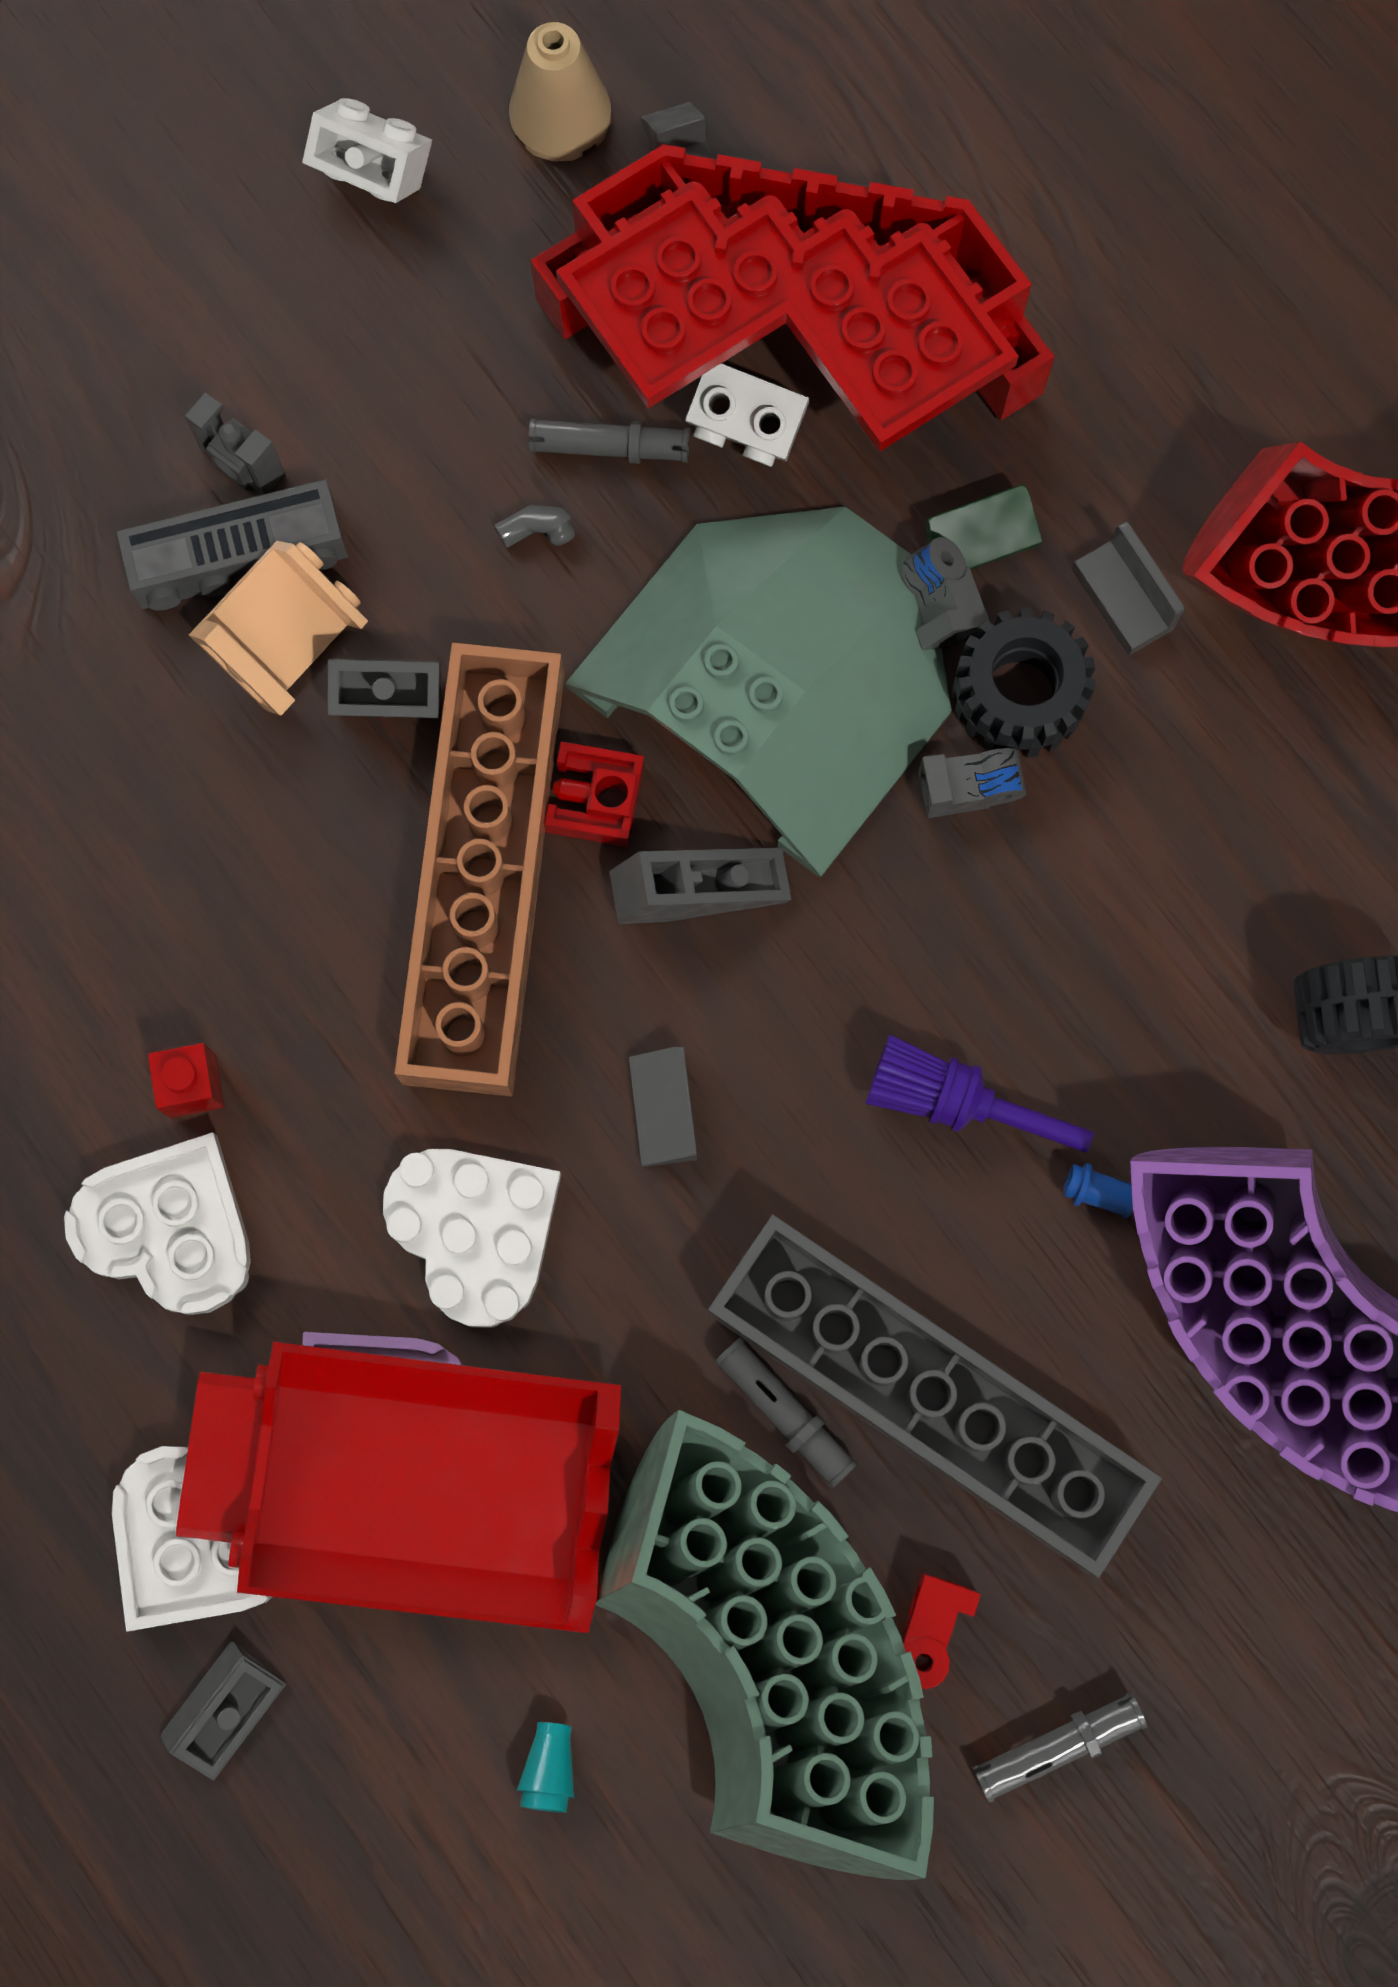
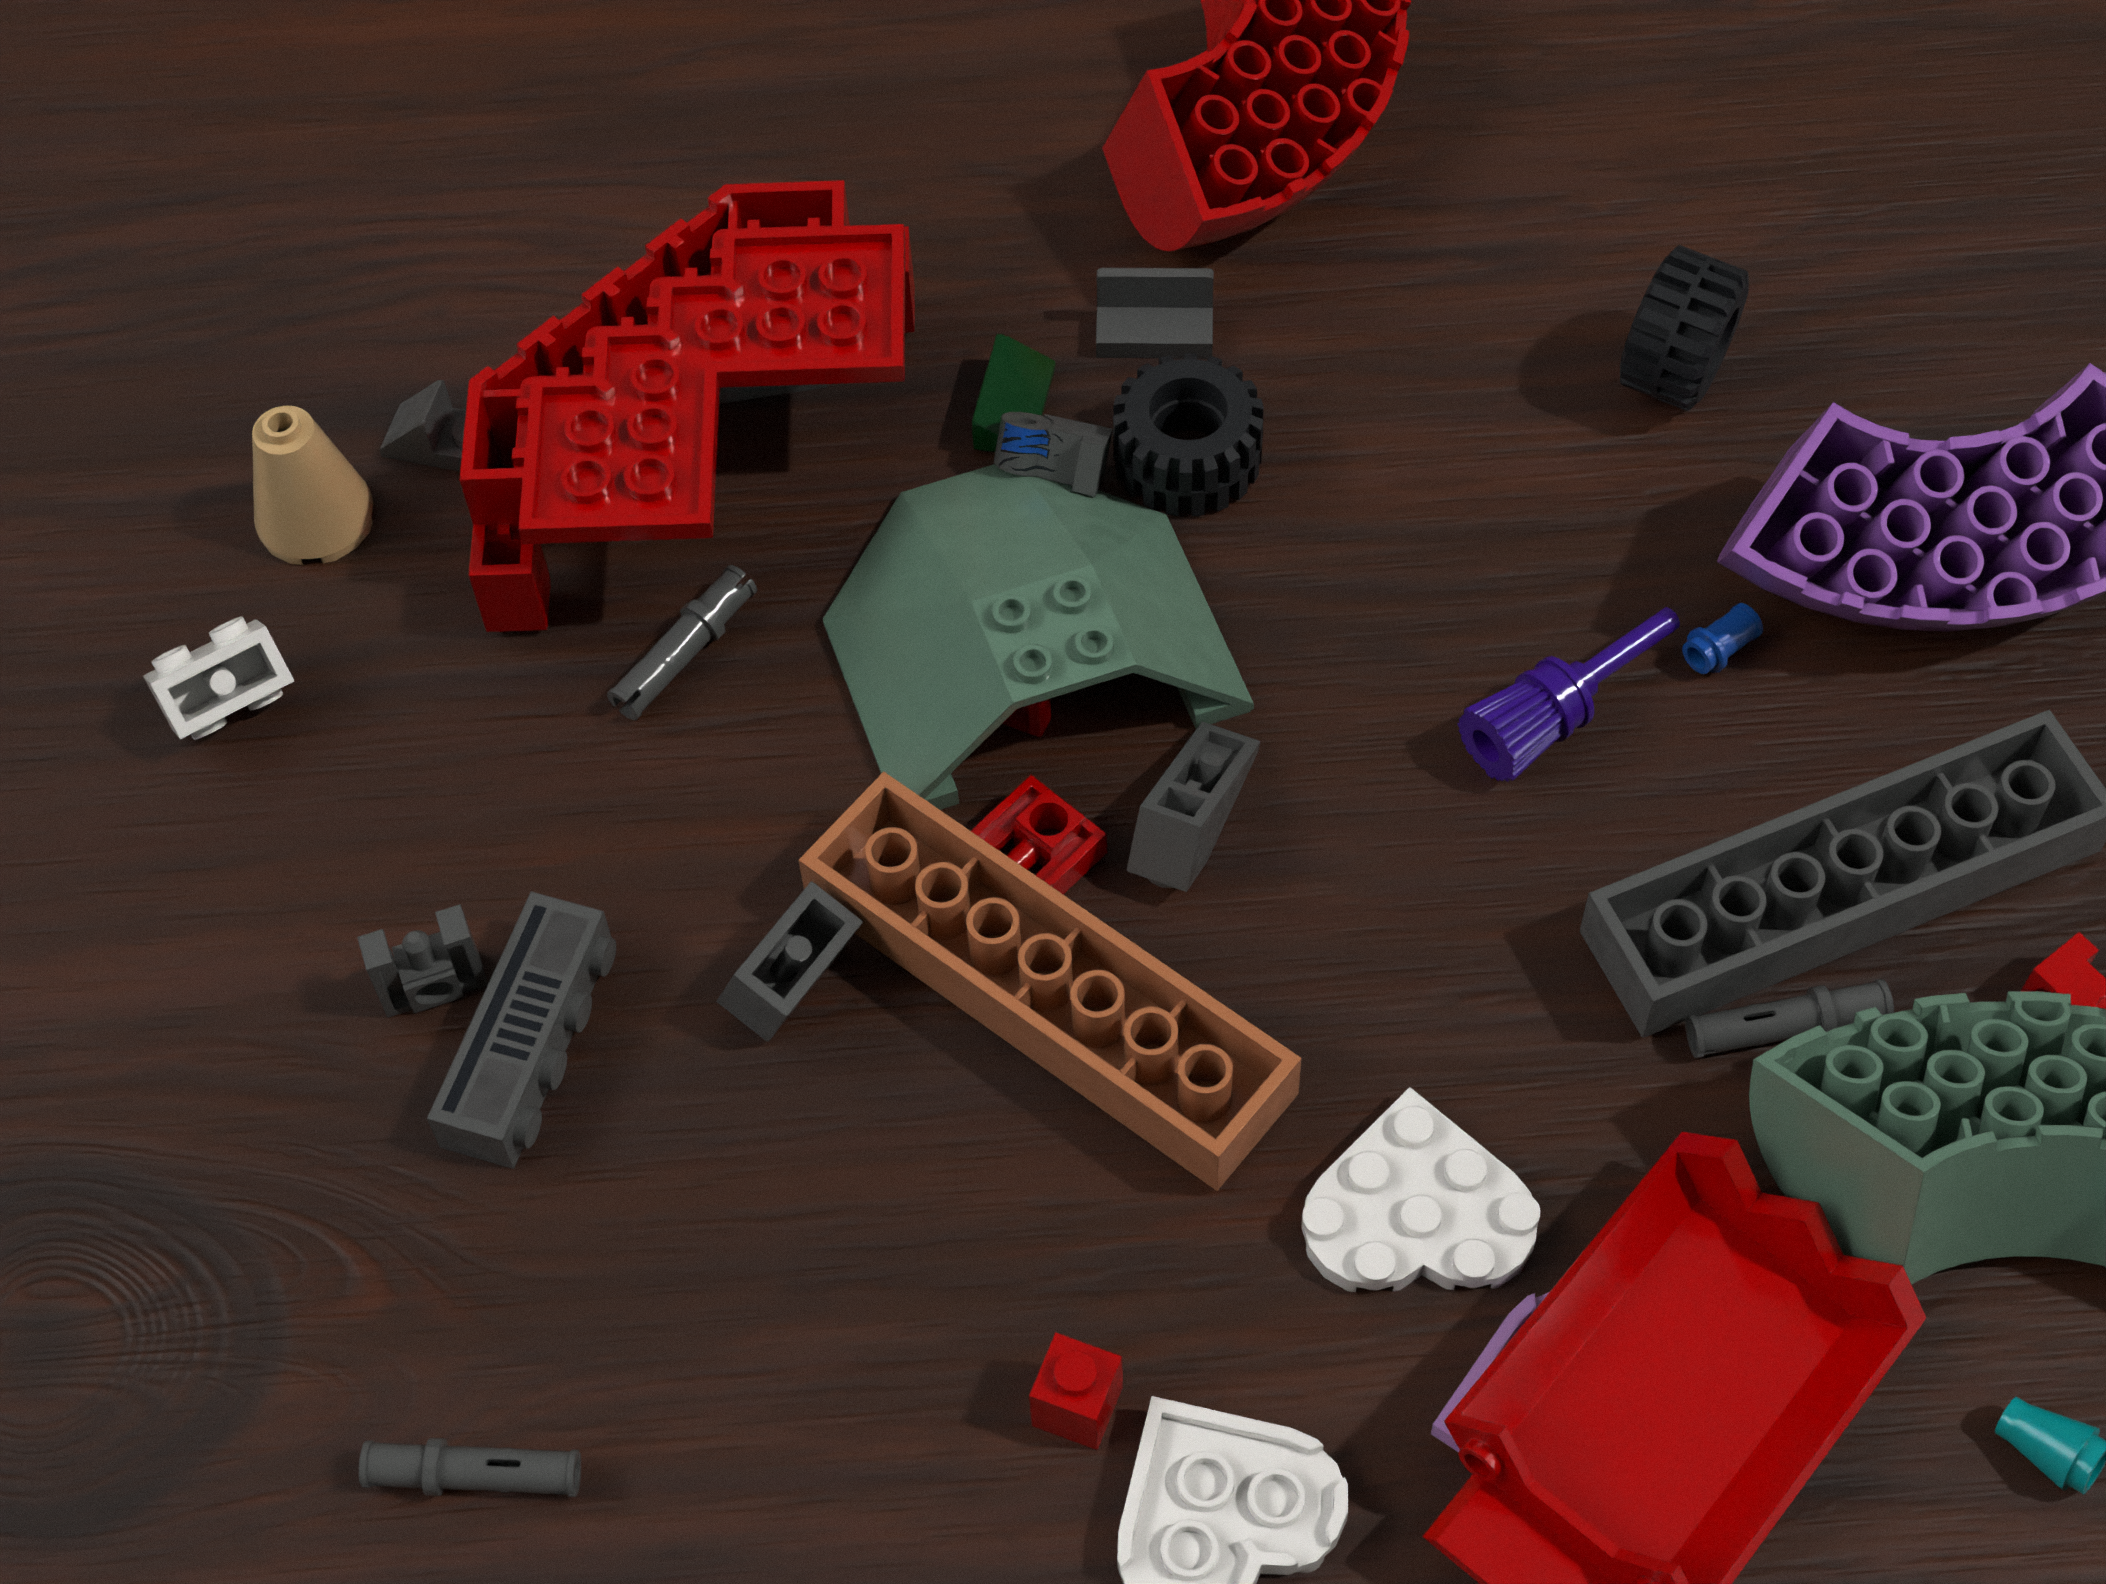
camera: 55 degrees left, 20 degrees down
(277, 623) = (642, 1022): light nougat panel -> none
(538, 519) = (710, 748): dark grey arm -> none
(663, 1107) = (1402, 957): dark grey slope -> none
(750, 404) = (760, 505): white brick -> none
(970, 781) = (1248, 532): dark grey leg -> none

